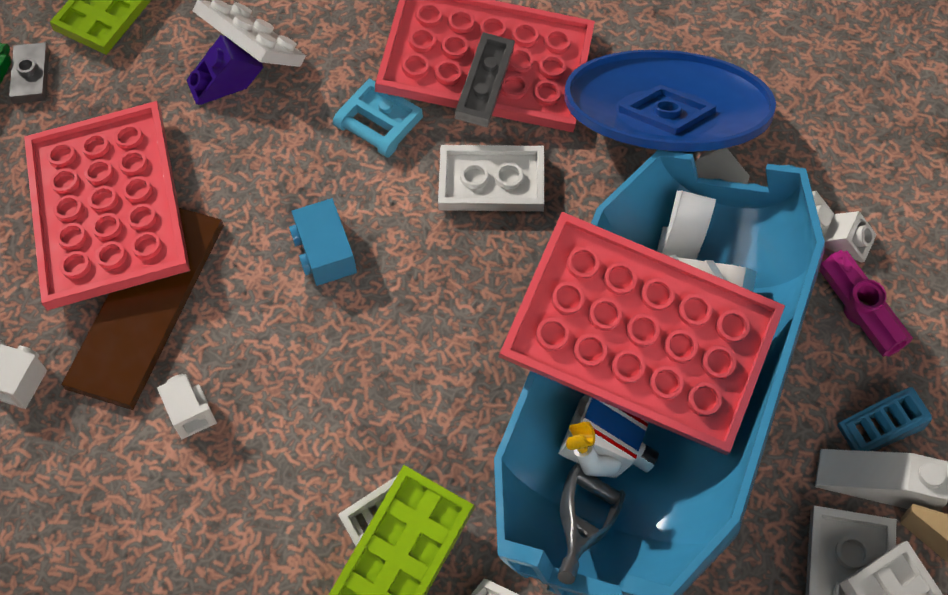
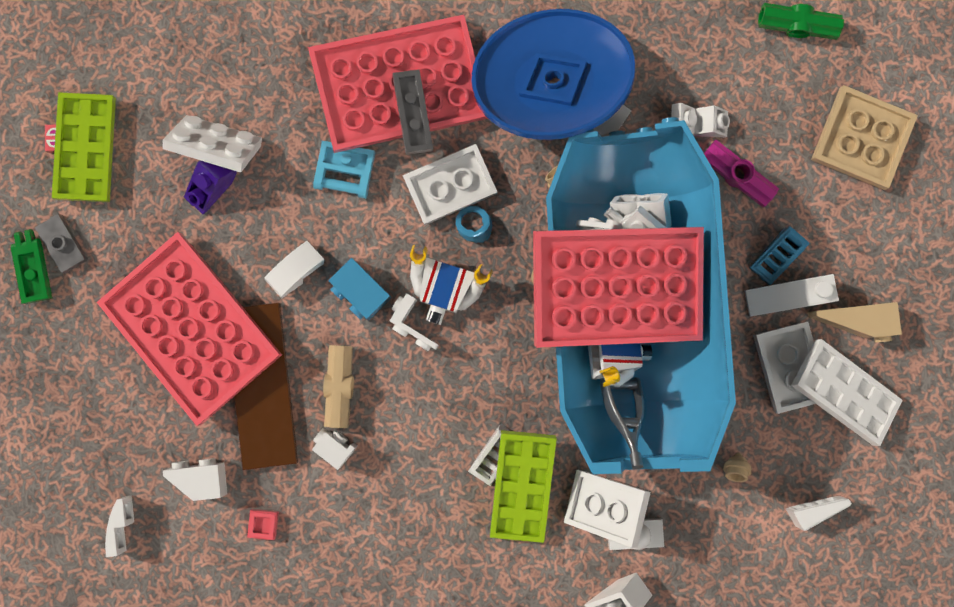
camera: 30 degrees left, 25 degrees up
(43, 463) = (262, 524): none -> coral tile
(234, 338) = (338, 386): none -> tan piece
(251, 192) = (293, 269): none -> white slope
(353, 290) = (402, 309): none -> white bracket
(426, 276) = (444, 285): none -> torso
(503, 244) = (480, 235): none -> dark azure piece
(687, 225) = (608, 177): white slope -> none

